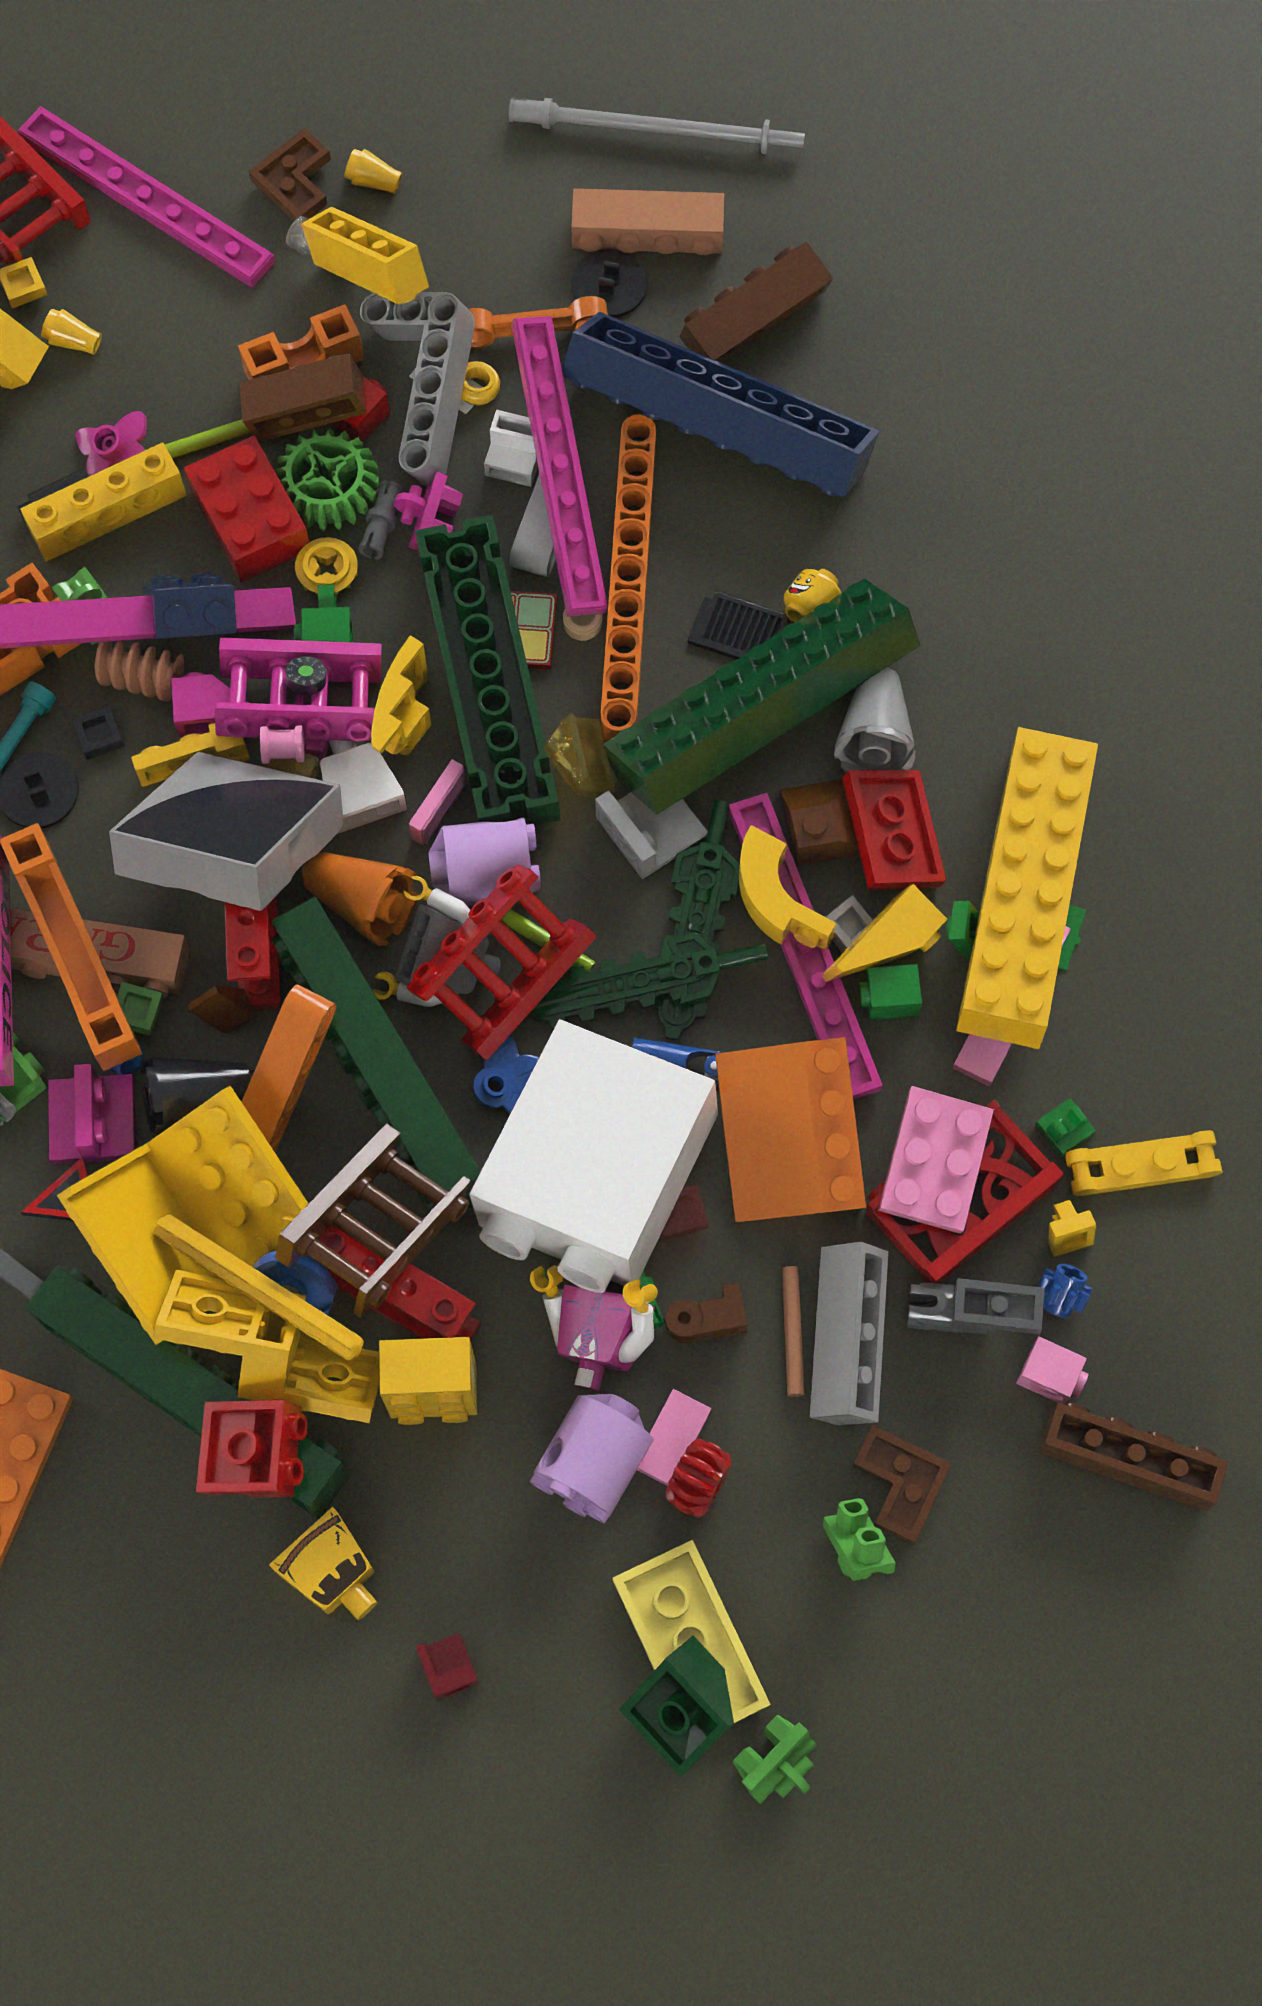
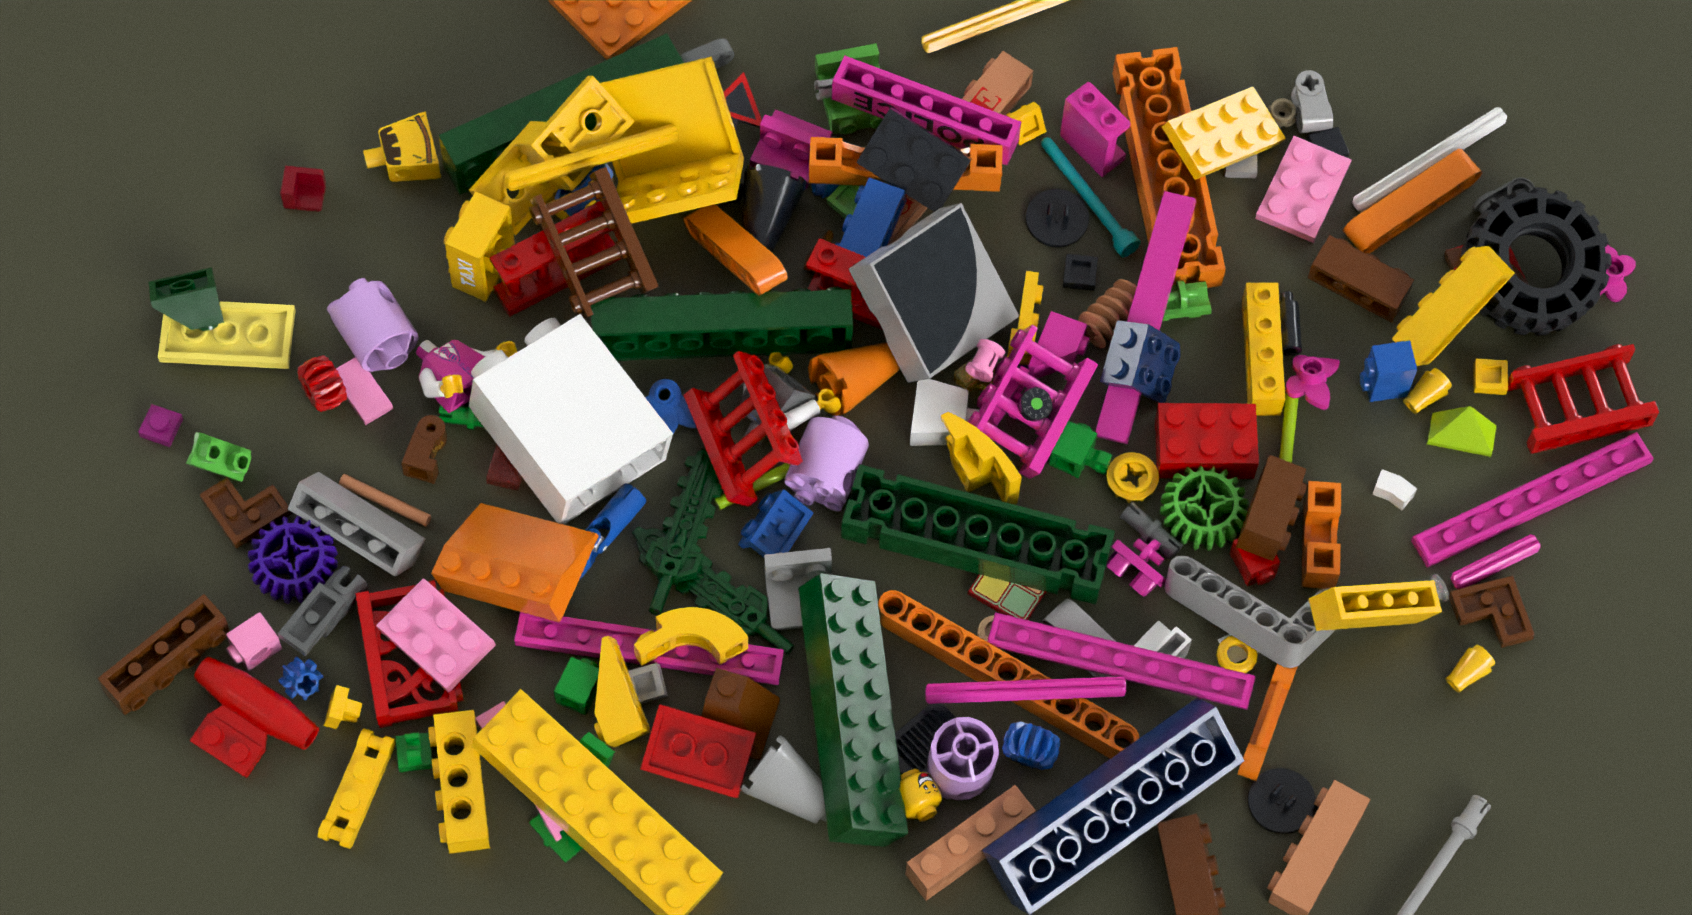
camera: 115 degrees right, 5 degrees down
(67, 926) = (914, 160): none -> black plate
(72, 363) = (1388, 371): none -> blue brick
(102, 289) = (1462, 430): none -> lime slope
(169, 950) = (873, 218): none -> blue brick
(204, 319) = (1394, 489): none -> white piece
(238, 199) = (1495, 562): none -> dark pink axle
(251, 1448) = (490, 111): red plate -> none
(438, 802) = (894, 453): bright pink tile -> none
(580, 756) = (880, 561): clear yellow slope -> none
(589, 890) = (776, 524): none -> blue bracket
(645, 537) = (1025, 690): none -> dark pink axle
(697, 513) = (1031, 745): none -> blue gear
(756, 560) = (963, 758): none -> lavender cylinder
(782, 1766) = (115, 345): bright green hips -> none
(832, 525) = (963, 845): none -> nougat brick
(849, 1652) = (160, 425): none -> magenta plate
(941, 1402) = (279, 561): none -> dark purple gear
(1116, 1010) = (471, 832): none -> yellow brick
(1142, 1326) = (248, 714): none -> red plate

